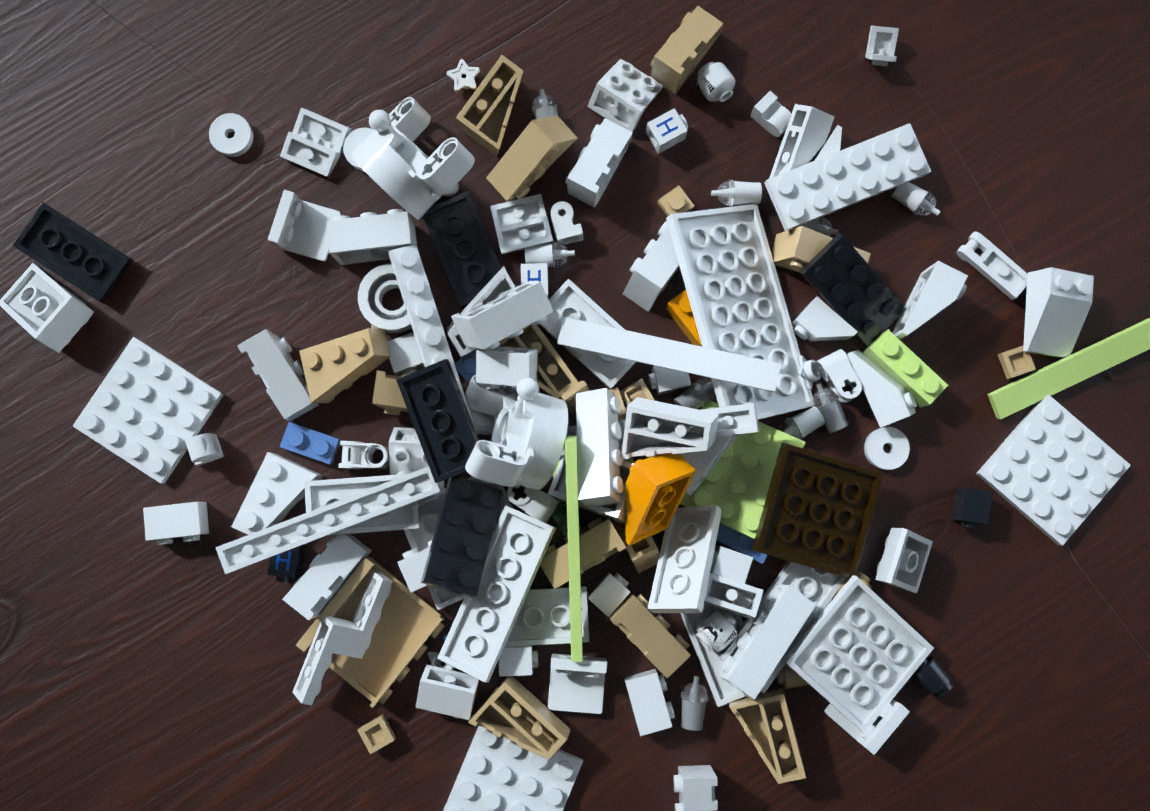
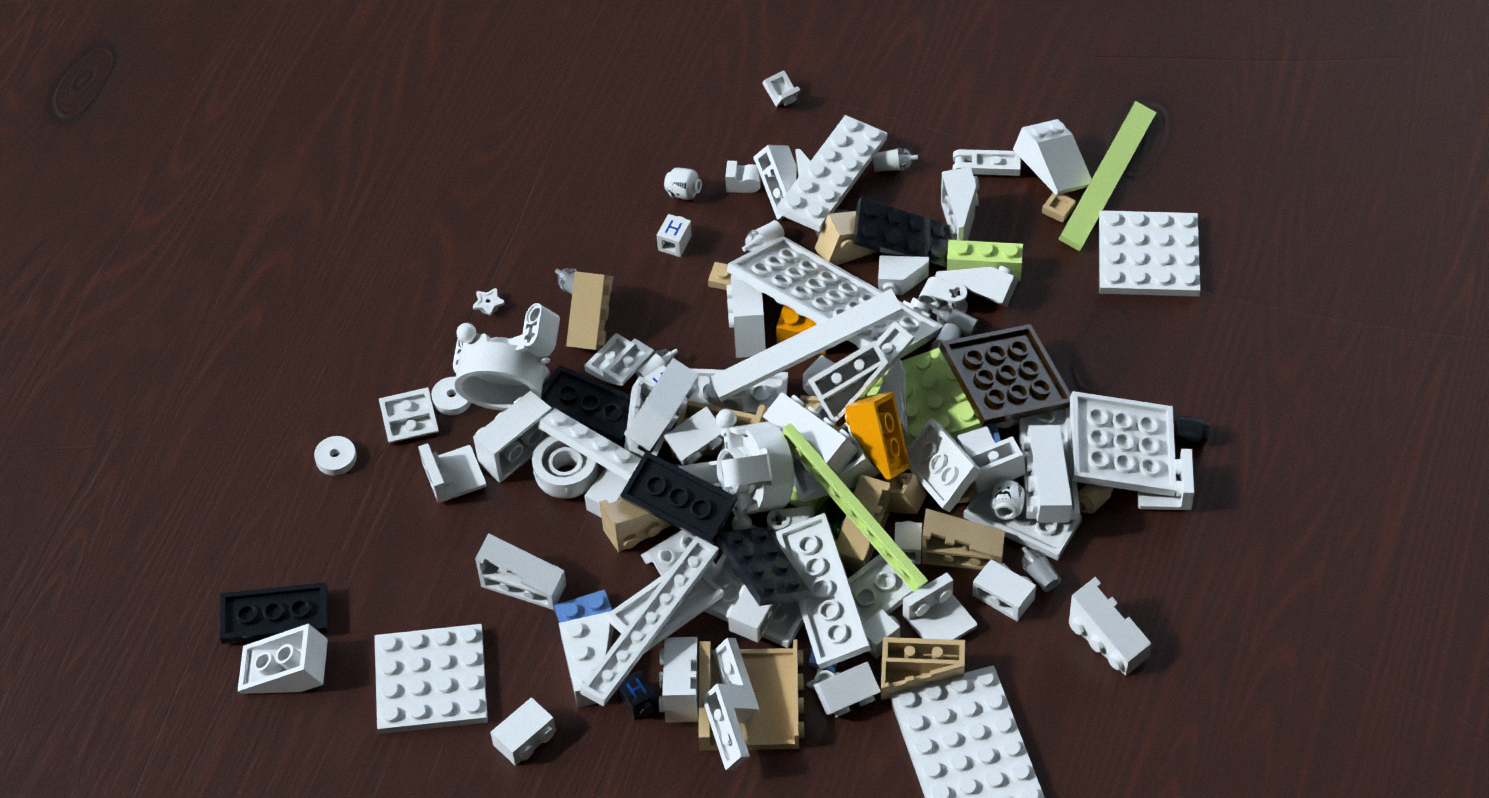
camera: 35 degrees left, 30 degrees down
(204, 448) = (502, 667): white leg -> none
(340, 362) = (563, 526): tan wedge -> none
(360, 455) = (631, 581): white piece -> none
(376, 734) = (818, 762): tan plate -> none
(490, 106) = (525, 289): tan wedge -> none
(562, 223) = (653, 338): white leg -> none
(598, 162) = (642, 286): white wedge -> none
(624, 94) = (622, 236): white bracket -> none
(685, 49) = (641, 179): tan wedge -> none
(772, 733) = (1111, 540): tan wedge -> none
(874, 448) = (1021, 309): white piece -> none
(903, 559) = (1096, 366): white slope -> none
(972, 507) = (1114, 309): black brick -> none

